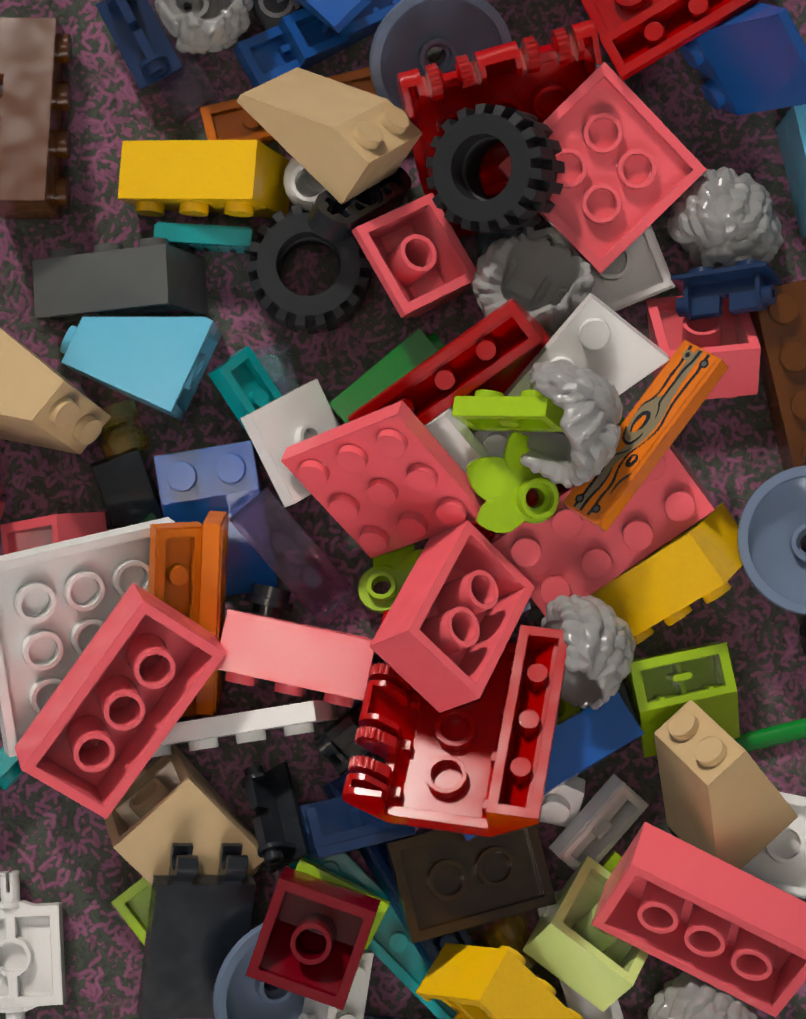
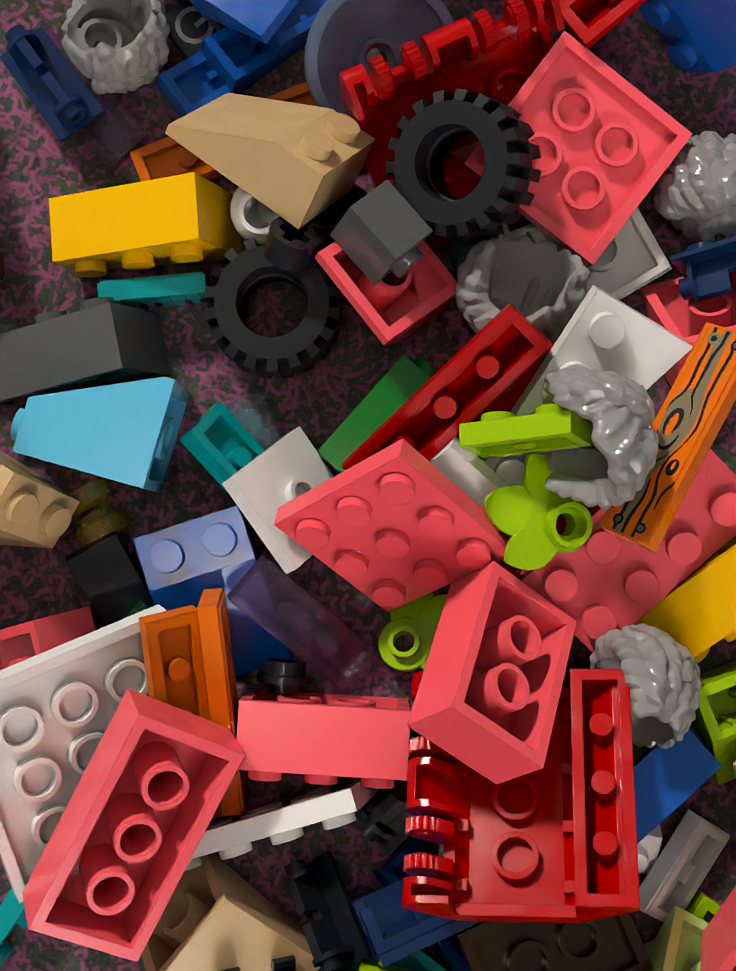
camera: 10 degrees left, 0 degrees up
(414, 219) = (382, 233): none -> dark grey brick

